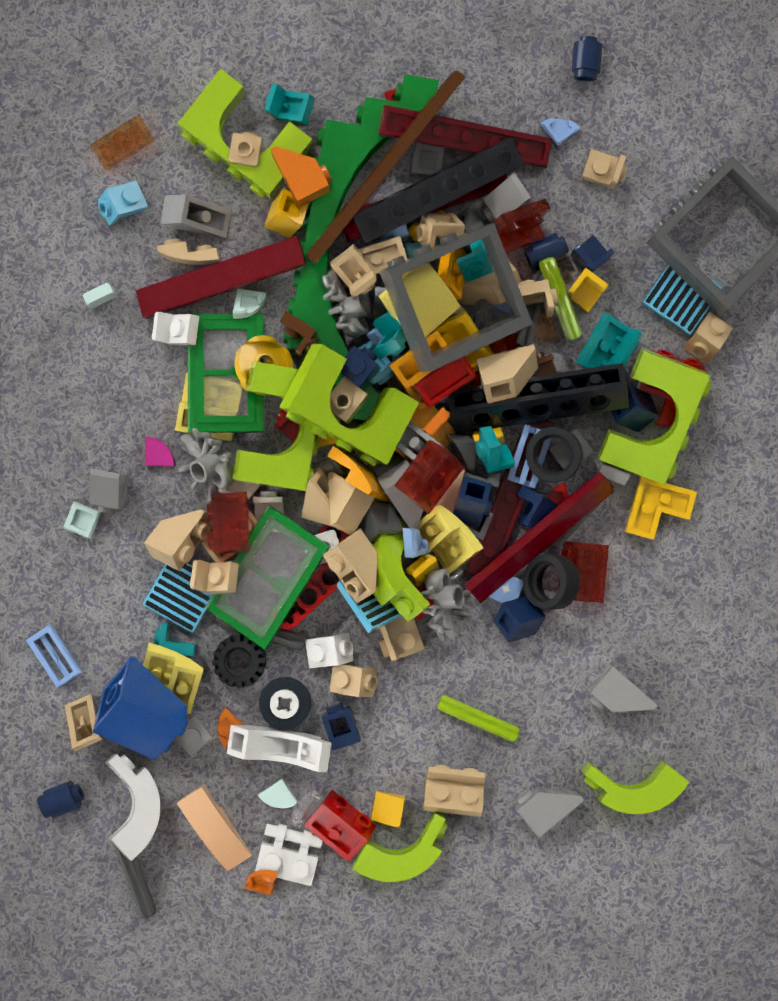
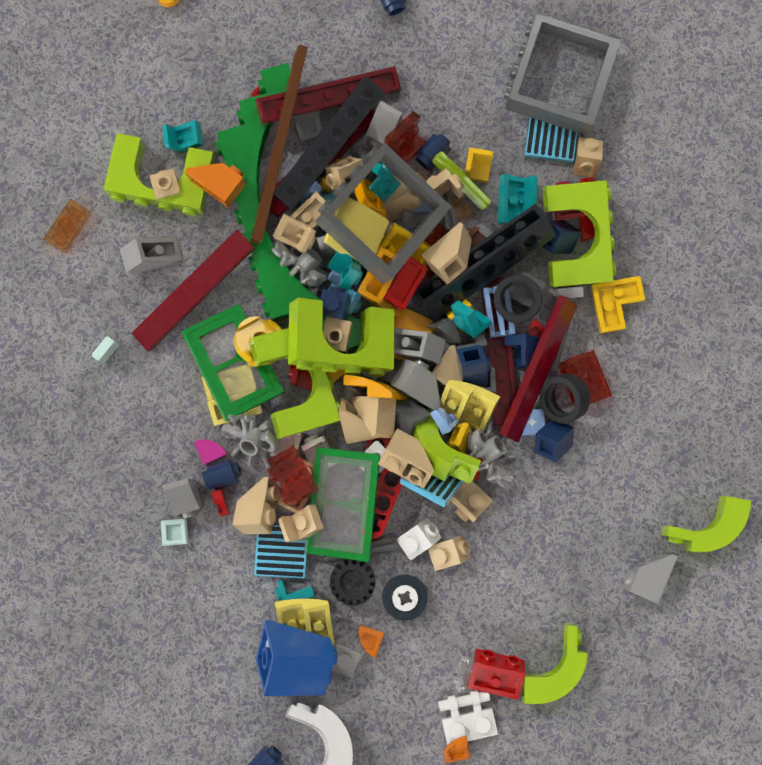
camera: 25 degrees left, 5 degrees down
(63, 649) = (217, 671): light blue tile -> none
(81, 720) = (250, 692): tan slope -> none
(121, 202) = (87, 271): medium azure bracket -> none
(144, 509) = (220, 499): none -> red tile
(158, 485) = (221, 475): none -> dark blue brick
(175, 329) = (177, 347): white bracket -> none
(180, 252) = (150, 287): tan slope -> none
(214, 827) = (398, 726): light nougat slope -> none
(248, 303) = (223, 300): light aqua tile -> none
(278, 795) = (436, 674): light aqua tile -> none
(279, 745) = (418, 633): white arch -> none
(285, 215) = (220, 219): yellow panel -> none
(297, 328) = (272, 298): reddish brown bracket -> none
(340, 737) = (465, 600): dark blue brick -> none
(388, 808) = (527, 641): yellow slope -> none
(429, 476) = (431, 360): clear red bracket -> none
(437, 422) = (415, 317): orange tile -> none
(454, 790) = (572, 600): tan bracket -> none
(478, 718) = (562, 534): lime axle -> none
(559, 130) = (397, 58): light blue tile -> none
(591, 254) = (468, 137): dark blue panel -> none
(605, 169) = (446, 70): tan bracket -> none
(617, 693) = (659, 460): light grey slope -> none

